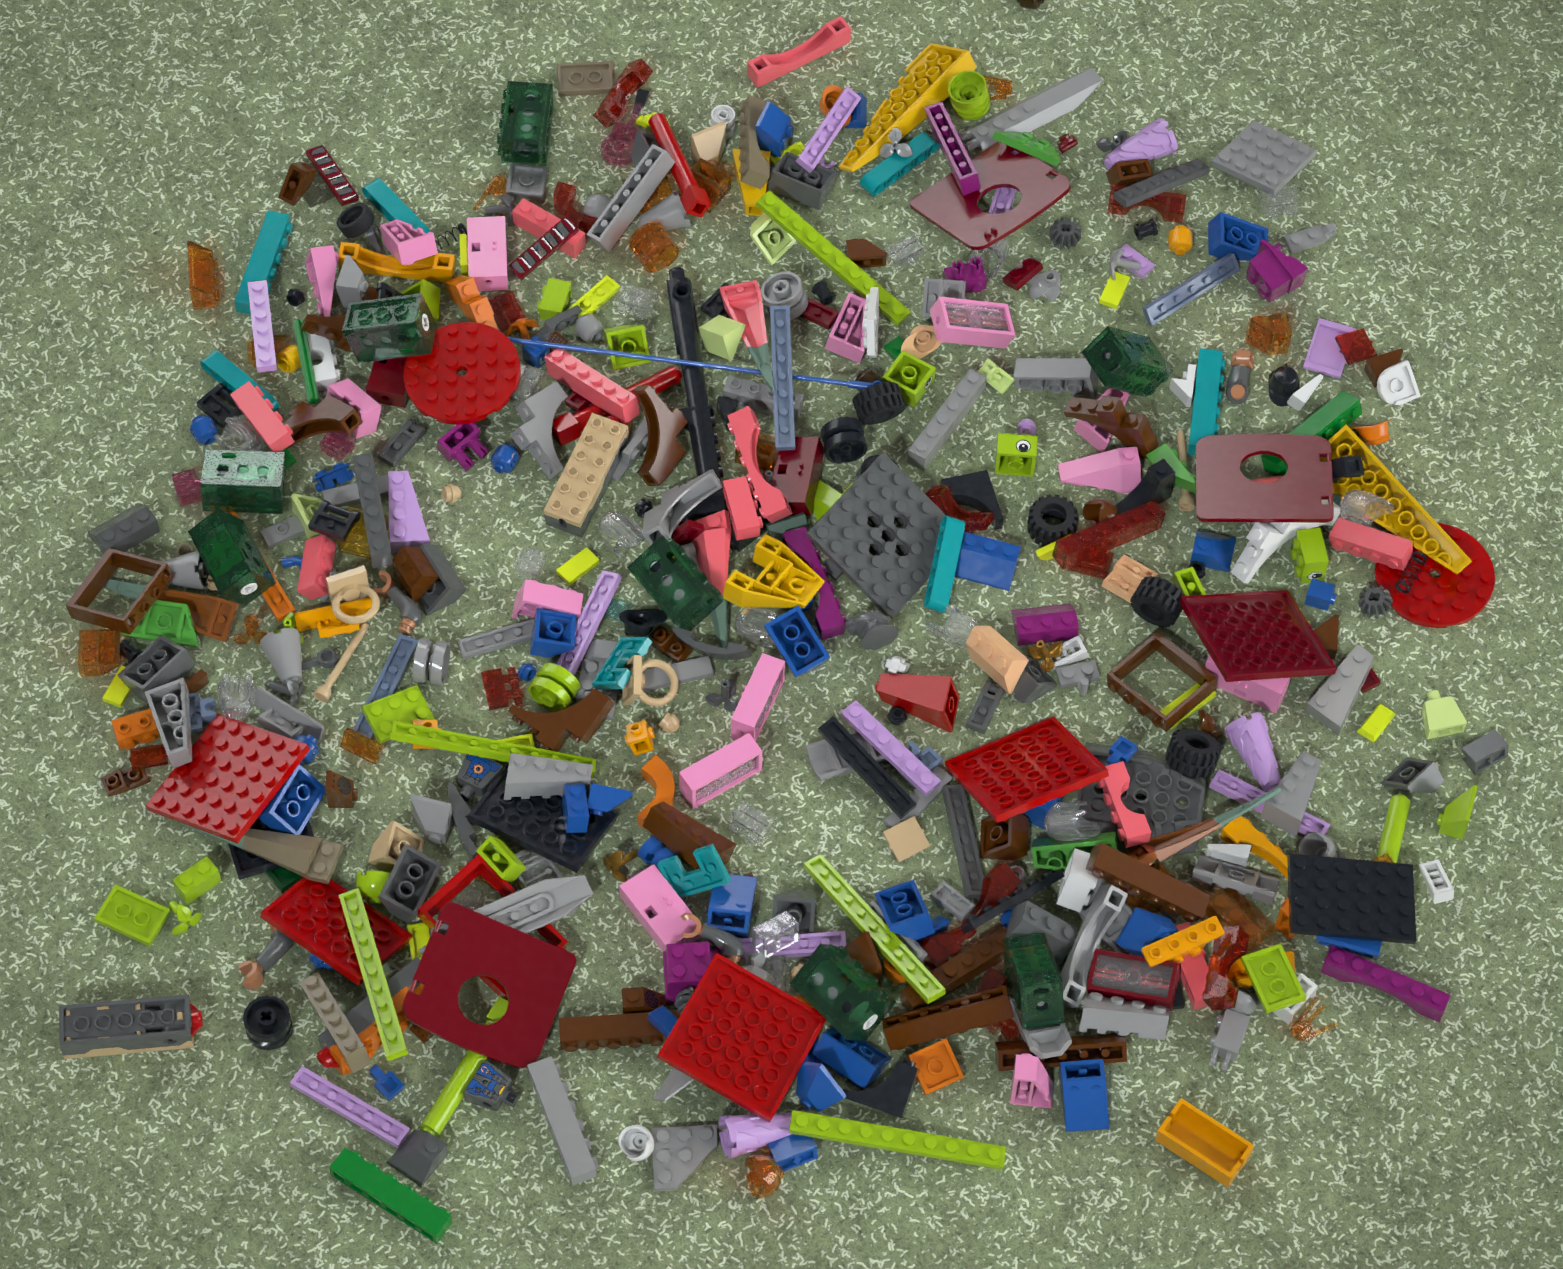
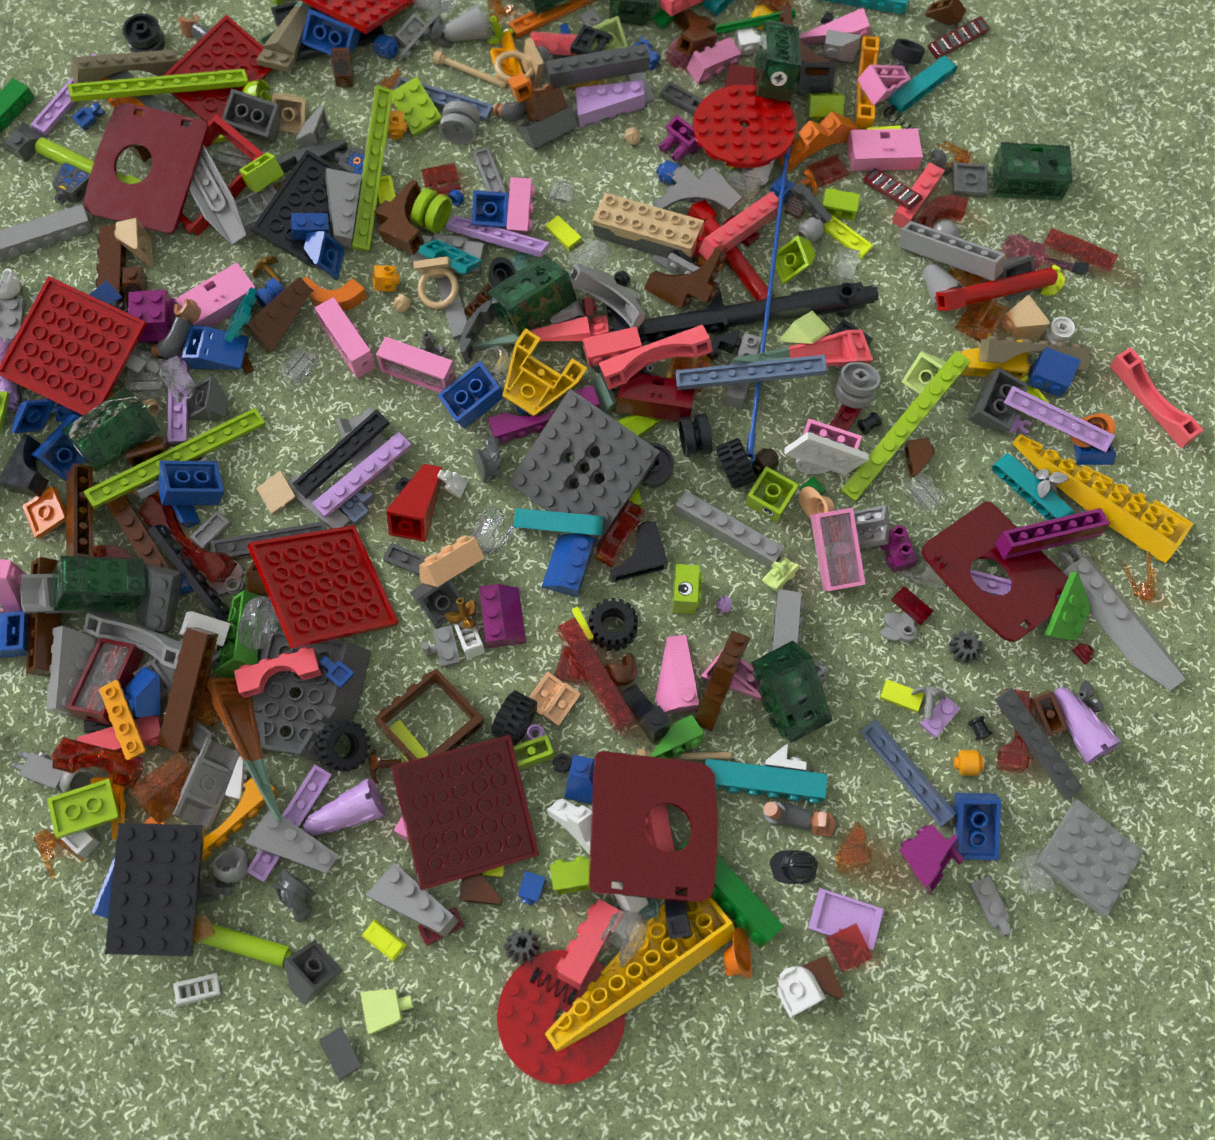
camera: 90 degrees right, 10 degrees up
(326, 658) = (472, 58): dark grey plate -> none
(392, 592) = (520, 87): none -> orange brick
(584, 78) = (1097, 222): dark tan tile -> none
(584, 998) = (135, 239): none -> tan slope
(653, 247) = (902, 275): clear orange wheel -> none
(969, 95) = (1125, 552): lime wheel -> none
(1301, 396) = (779, 884): white slope -> none
(1342, 792) = (293, 895): none -> dark grey piece
(1419, 996) = (64, 952): magenta arch -> none
(1457, 814) = (261, 1015): lime slope -> none

